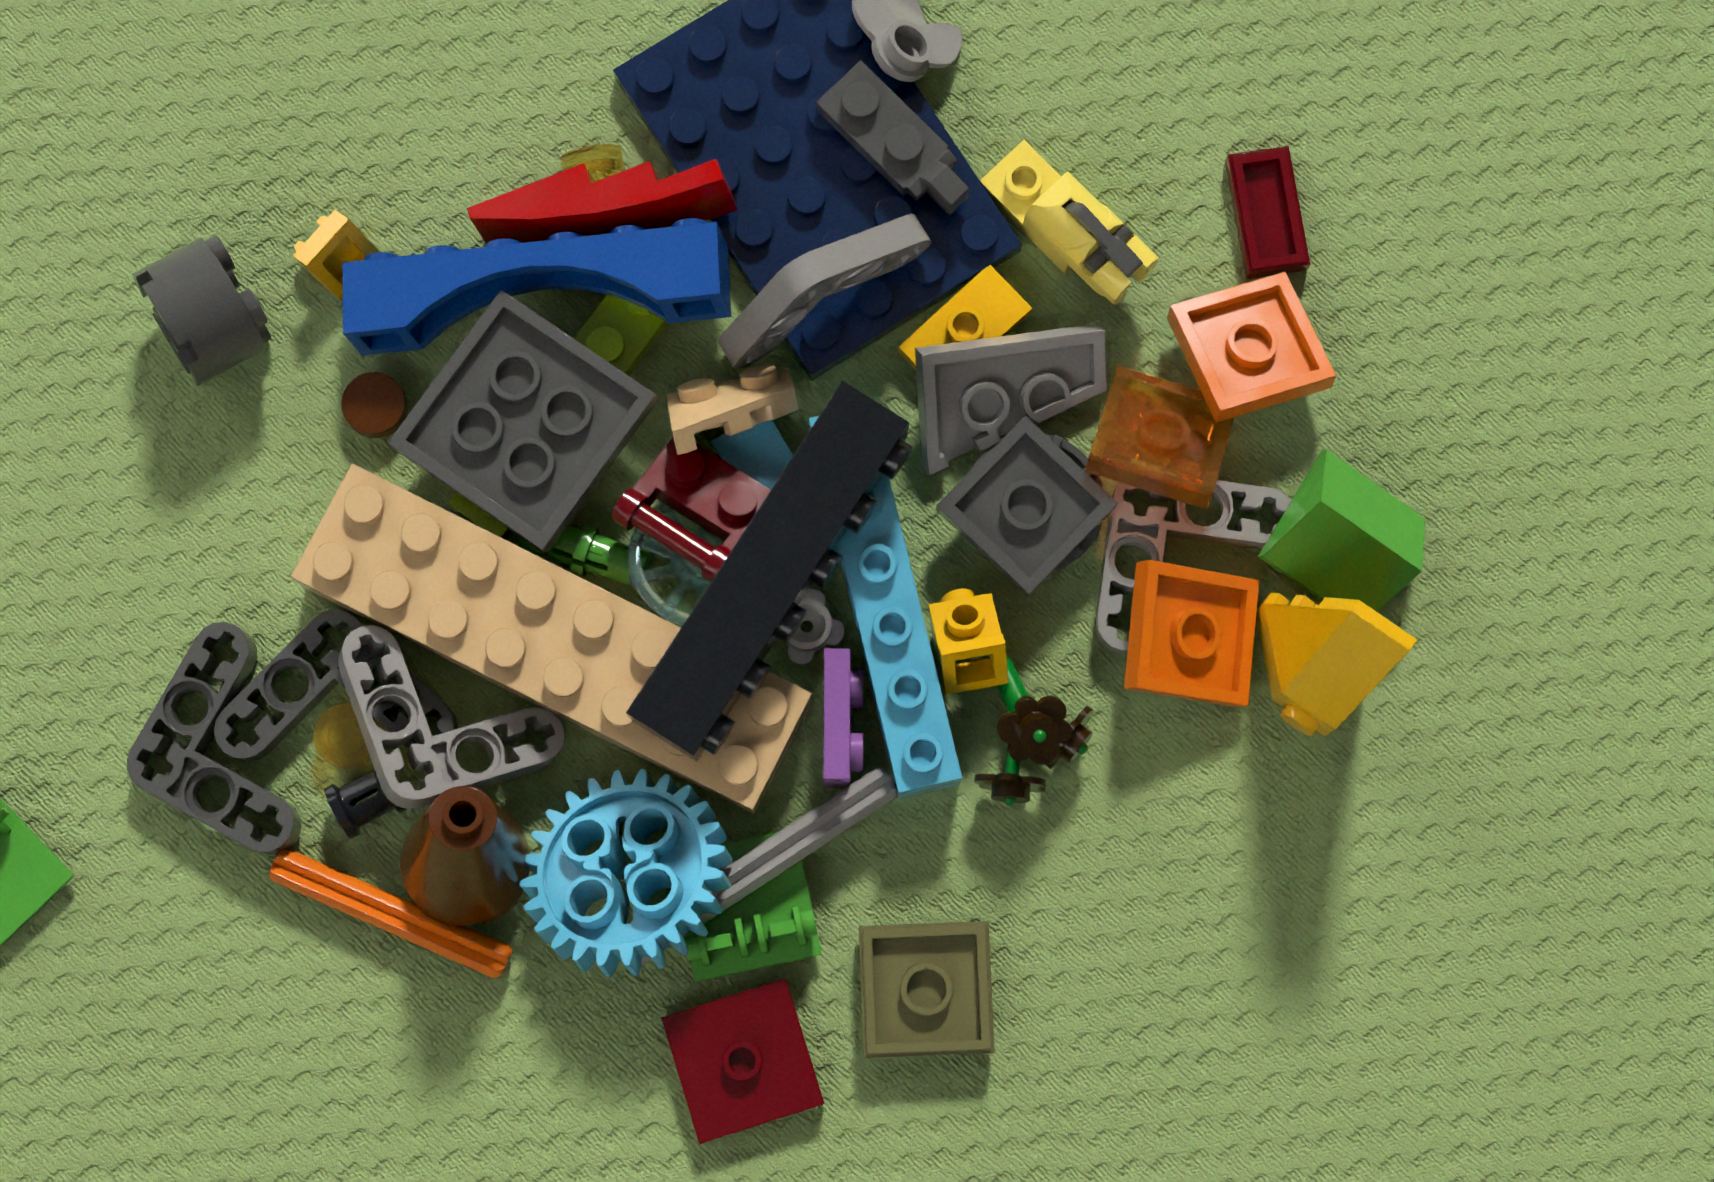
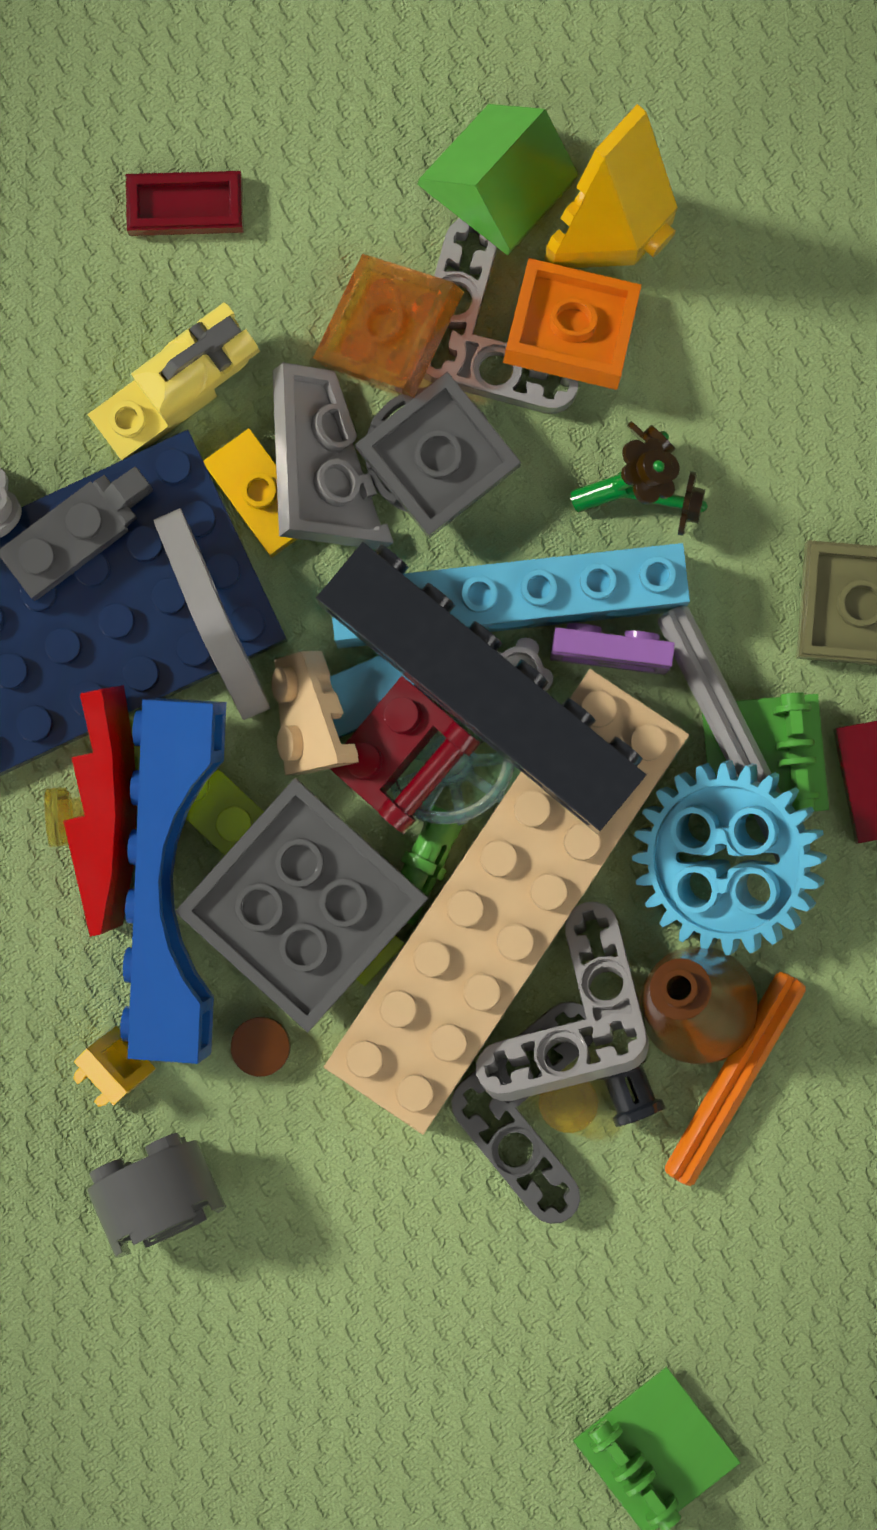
camera: 75 degrees left, 5 degrees up
(190, 764) = (580, 1245): dark grey beam -> none
(966, 628) = (554, 524): yellow brick -> none
(1251, 346) = (313, 233): orange plate -> none

